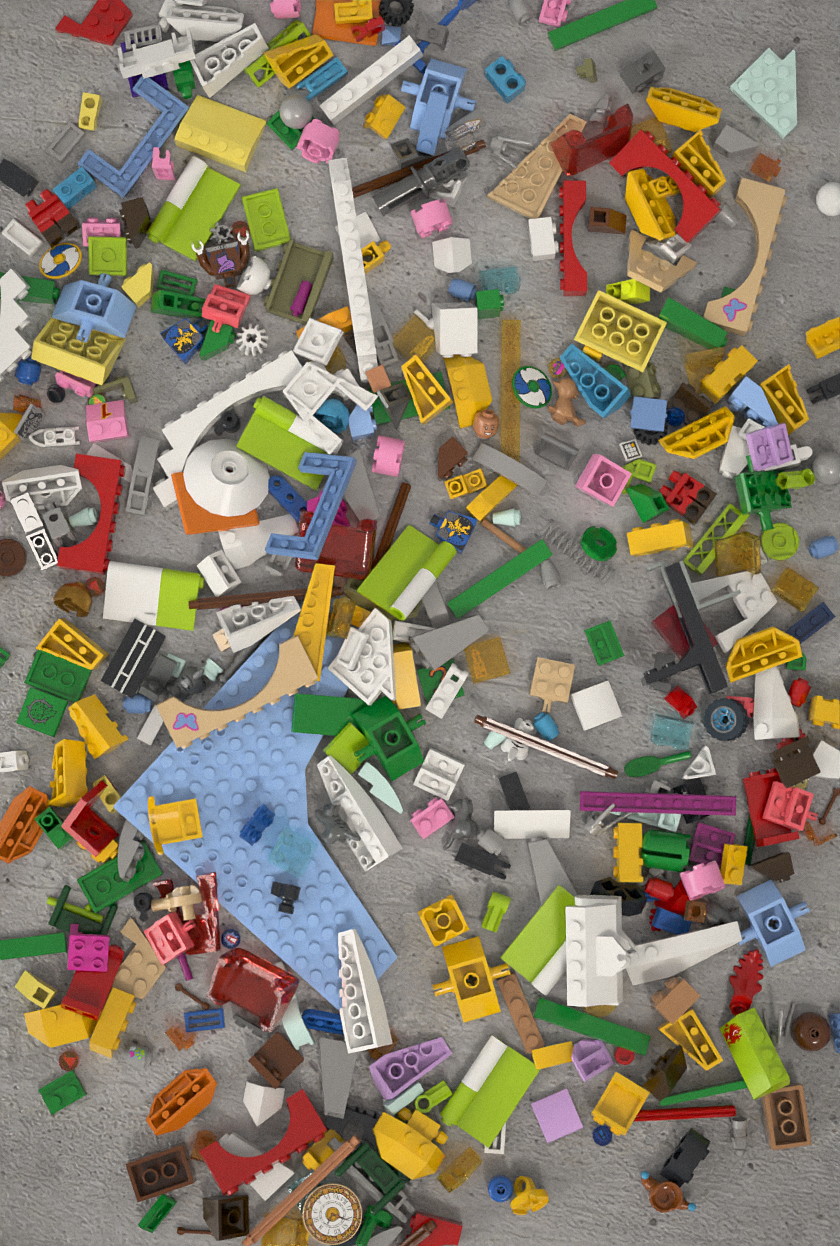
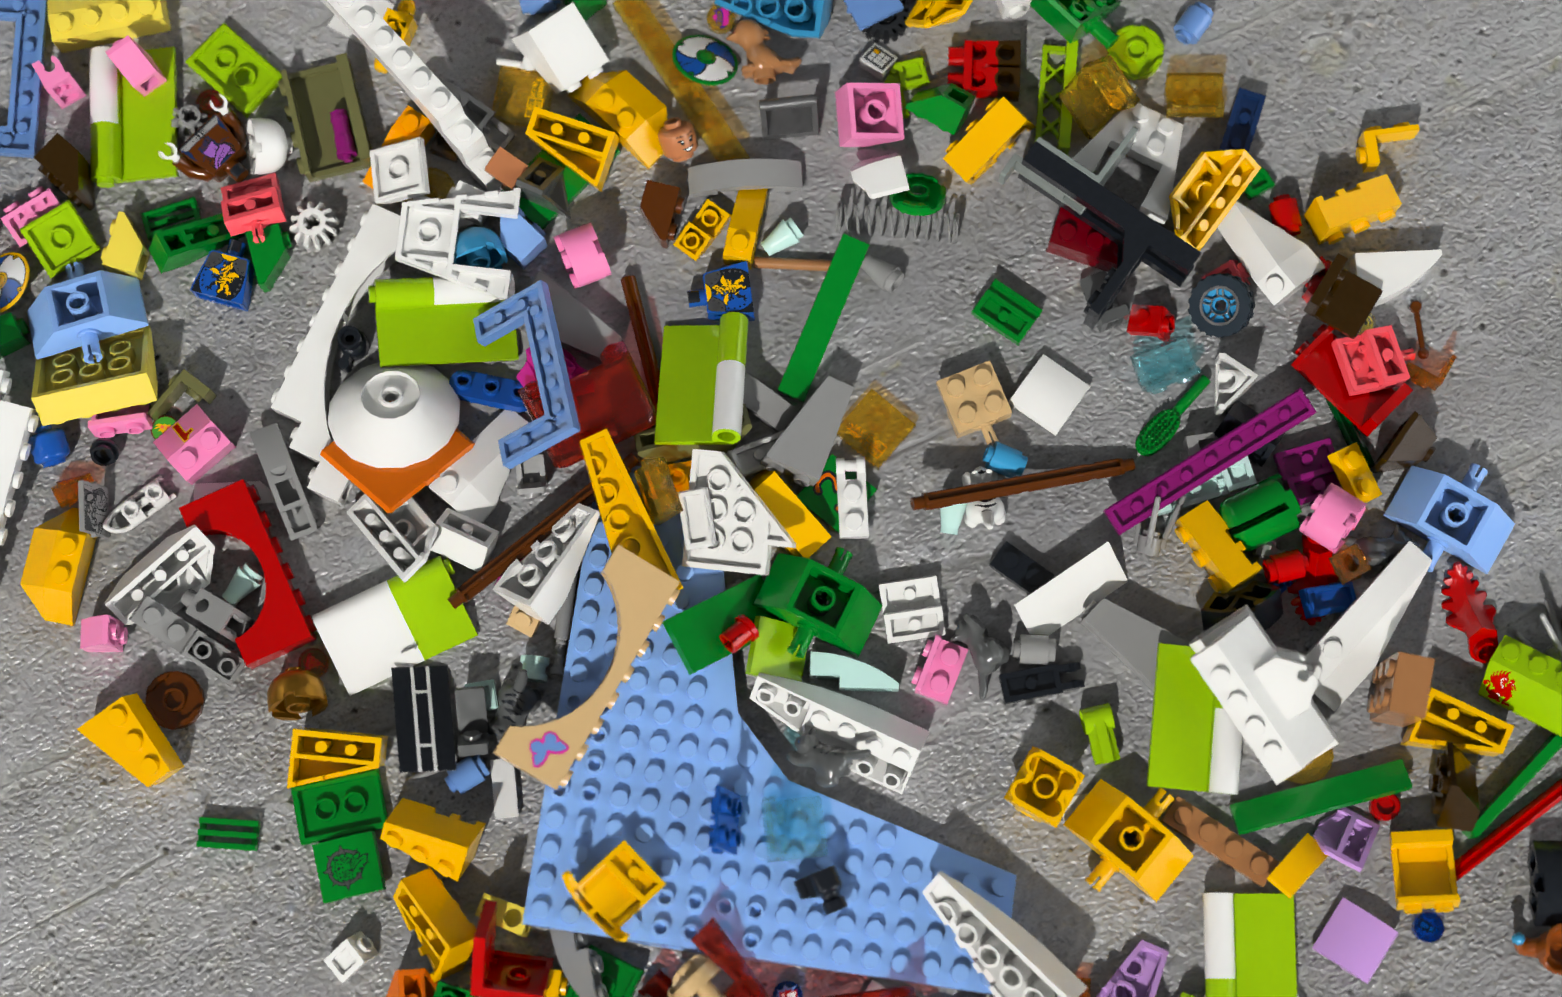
camera: 30 degrees left, 5 degrees down
(184, 551) = (400, 536): none -> white wedge
(211, 184) = (136, 65): none -> bright pink slope
(333, 727) = (739, 634): none -> red bush
(585, 519) = (880, 175): none -> white slope

